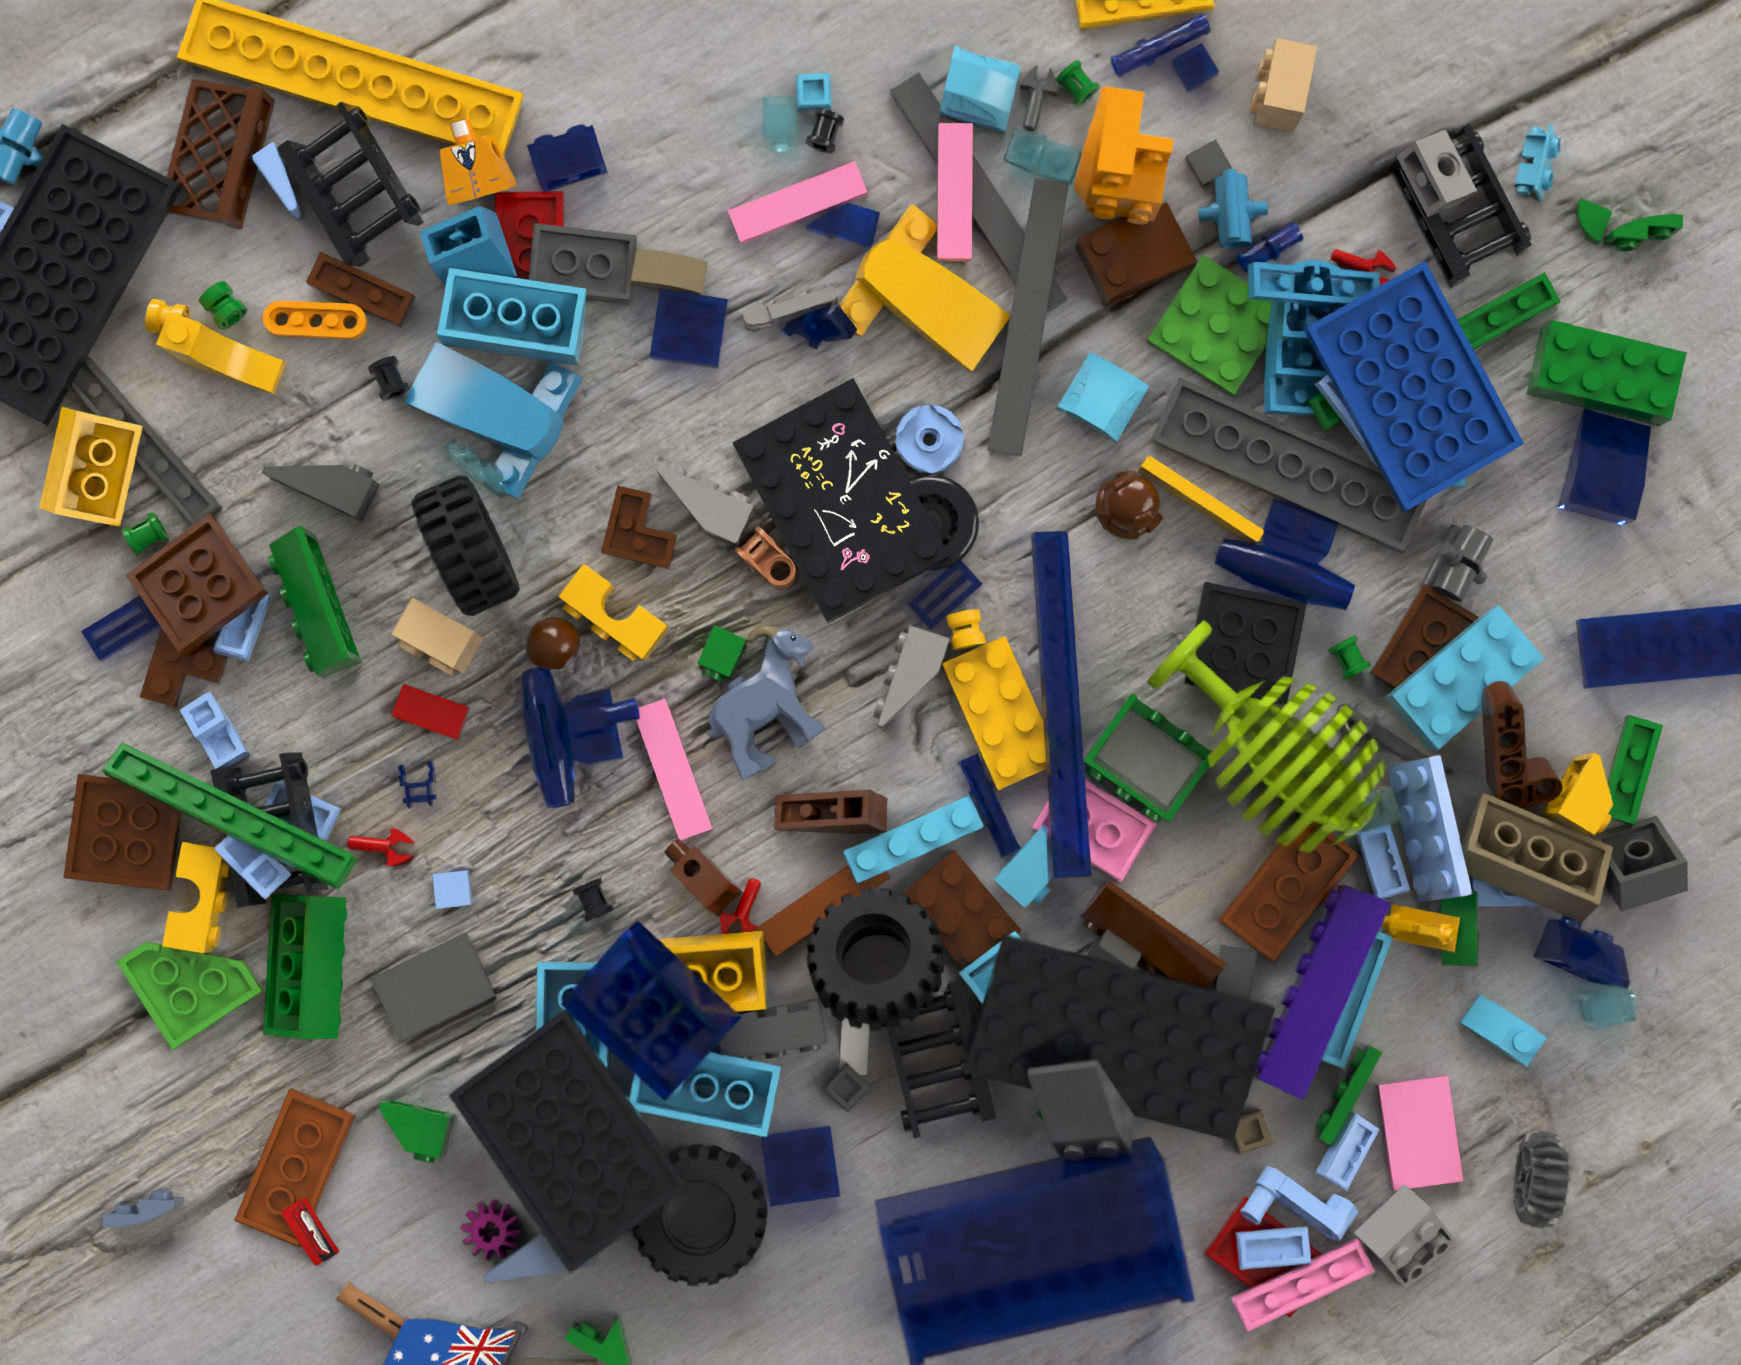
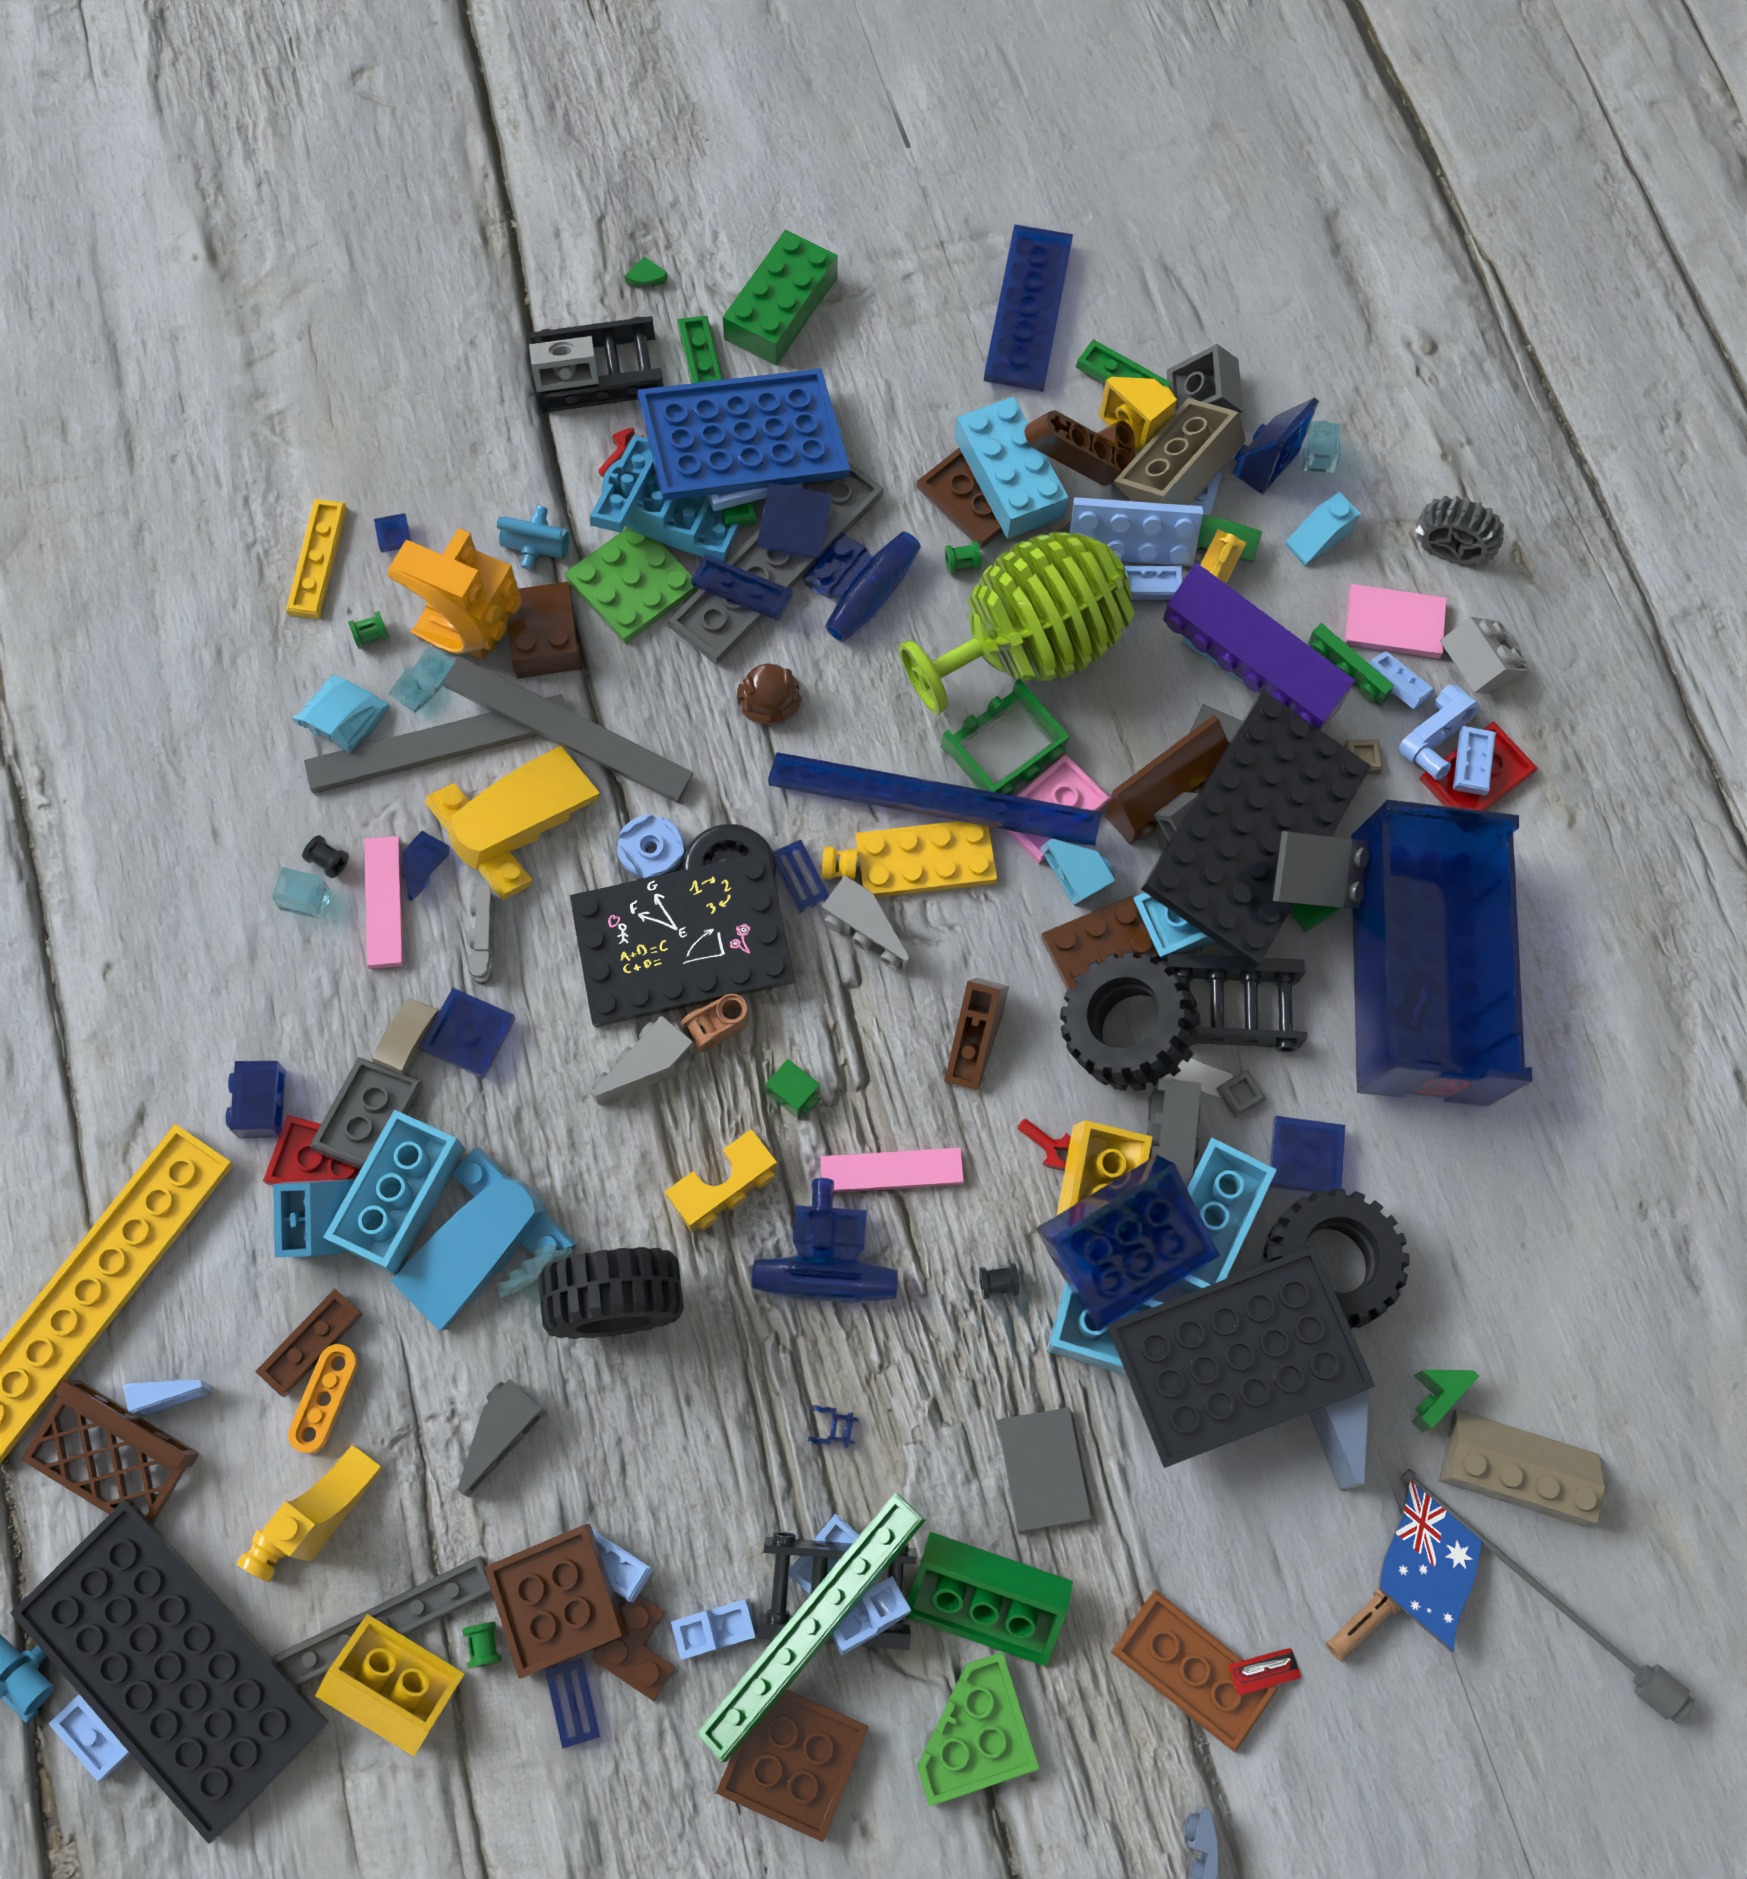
camera: 75 degrees left, 15 degrees down
(198, 929) = (918, 1705): yellow arch -> none
(222, 304) = (270, 1491): green wheel -> none
(313, 602) = (614, 1479): green slope -> none
(318, 187) = (223, 1344): black fence -> none
(383, 846) = (885, 1481): red bar -> none
(388, 378) = (399, 1346): black bush -> none
(419, 1128) = (1186, 1520): green slope -> none
(430, 711) = (763, 1393): red tile -> none
(432, 633) = (692, 1357): tan brick -> none
(452, 889) = (949, 1422): light blue tile -> none
(473, 166) = (229, 1188): light orange torso -> none
(481, 1220) = (1292, 1480): magenta gear -> none
(552, 643) = (732, 1248): reddish brown hair -> none
(628, 536) = (650, 1146): reddish brown plate -> none
(710, 885) = (1016, 1155): reddish brown torso -> none
(762, 699) = (849, 1062): sand blue animal -> none
(799, 917) = (1058, 1065): dark orange tile -> none
(813, 91) = (282, 854): medium azure tile -> none
(822, 324) = (509, 909): clear blue slope -> none
(912, 839) = (1022, 966): medium azure plate -> none
(954, 192) = (428, 758): bright pink tile -> none
(989, 805) = (1047, 887): clear blue pin -> none
(1036, 96) = (365, 668): dark grey bar -> none
(1103, 396) = (662, 690): medium azure slope -> none
(1126, 62) = (364, 584): clear blue pin -> none
(1200, 500) = (785, 634): yellow tile -> none
(1207, 163) = (487, 543): dark grey tile -> none
(1238, 440) = (742, 587): none -> clear blue tile
(1250, 638) = (920, 616): black plate -> none
(1271, 246) = (577, 518): clear blue axle -> none
(1284, 85) = (439, 461): tan brick -> none
(1286, 893) = (1158, 670): dark orange tile -> none
(1302, 1284) = (1512, 748): bright pink tile -> none
(1328, 471) = (794, 521): none -> clear blue tile
(1458, 562) = (905, 449): dark grey pin -> none
(1542, 149) = (592, 302): medium azure hinge -> none
(1606, 468) = (863, 321): clear blue slope -> none
(1636, 232) = (670, 230): green slope -> none

